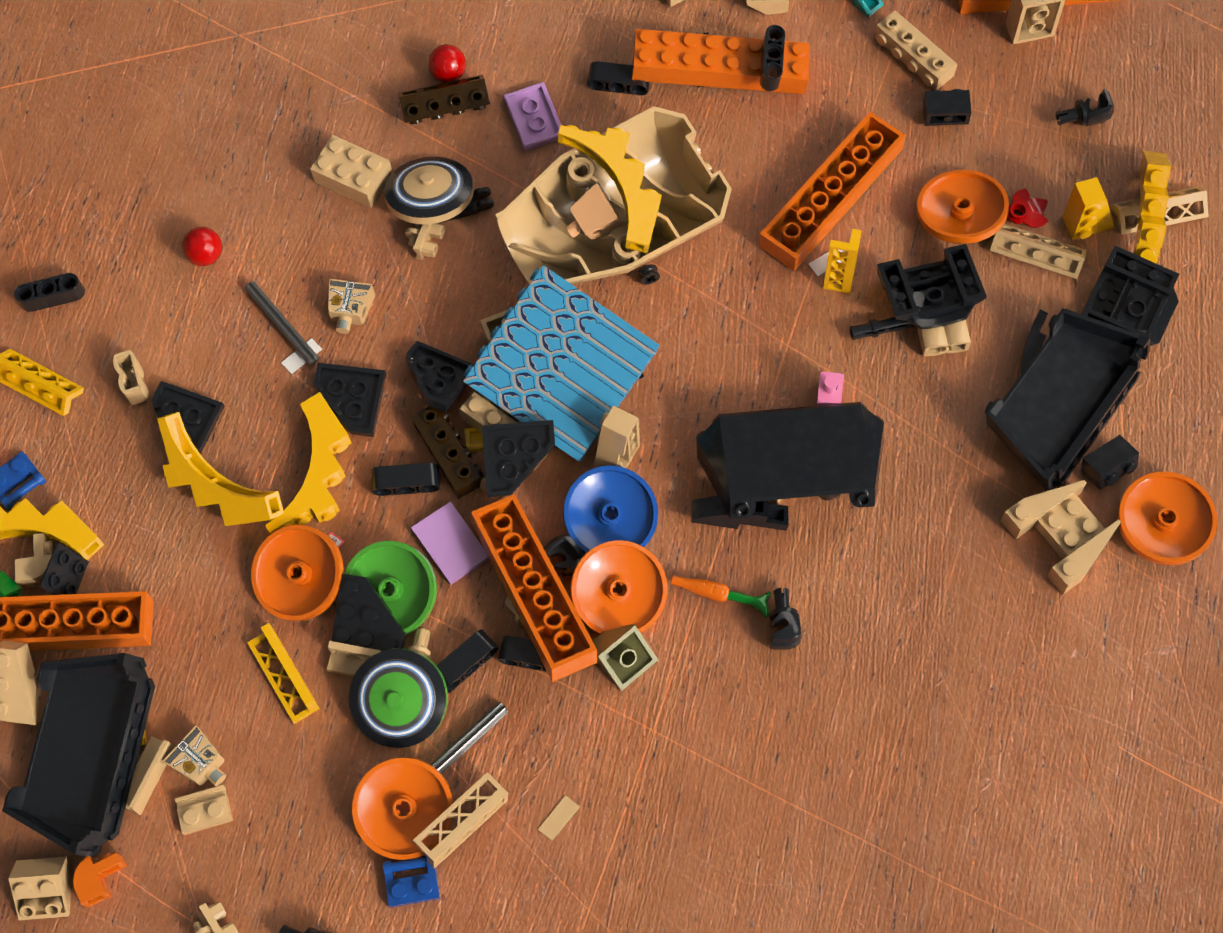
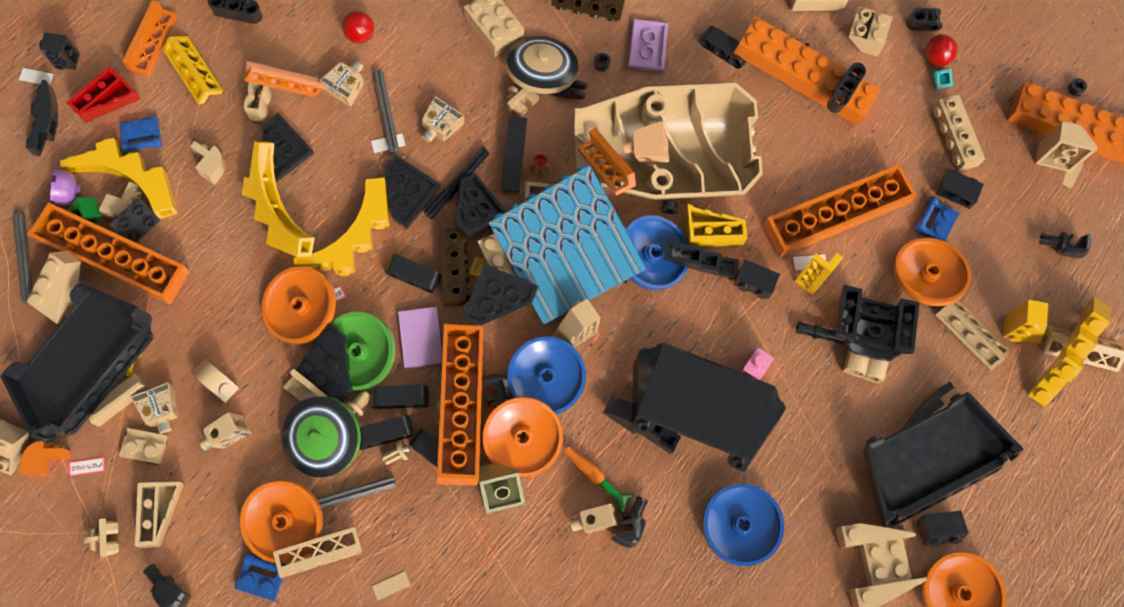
camera: 15 degrees right, 5 degrees up
(115, 471) = (212, 163): none -> tan brick
(148, 341) = (281, 79): none -> orange fence
(150, 864) = (86, 466): none -> white sticker
(217, 313) = (344, 82): none -> tan torso
(247, 697) = (214, 380): none -> tan brick
(255, 868) = (154, 511): none -> tan wedge
(288, 746) = (225, 431): none -> tan torso
(289, 667) = (255, 374): yellow fence -> none
(400, 364) = (453, 186): none -> black axle
(449, 299) = (514, 153): none -> black slope
(461, 615) = (399, 396): none -> black beam
(483, 294) = (540, 162): none -> piece
(490, 676) = (395, 454): none -> tan piece
(493, 150) = (602, 56): none -> black bush
(564, 249) = (612, 161): none -> orange fence
(627, 175) = (689, 126): yellow arch -> none
(668, 322) = (650, 239): none -> blue dish
(708, 274) = (713, 229): none -> yellow wedge
(712, 313) = (701, 260): none -> black slope
(747, 625) = (604, 519): none -> tan torso
(782, 304) = (756, 279): none -> black brick
(902, 563) = (743, 525): none -> blue dish
(947, 152) = (942, 222): none -> blue plate
(1029, 209) = (982, 298): red plate -> none
(1057, 40) = (1071, 177): none -> tan sticker
(1134, 295) = (1027, 406): black slope -> none

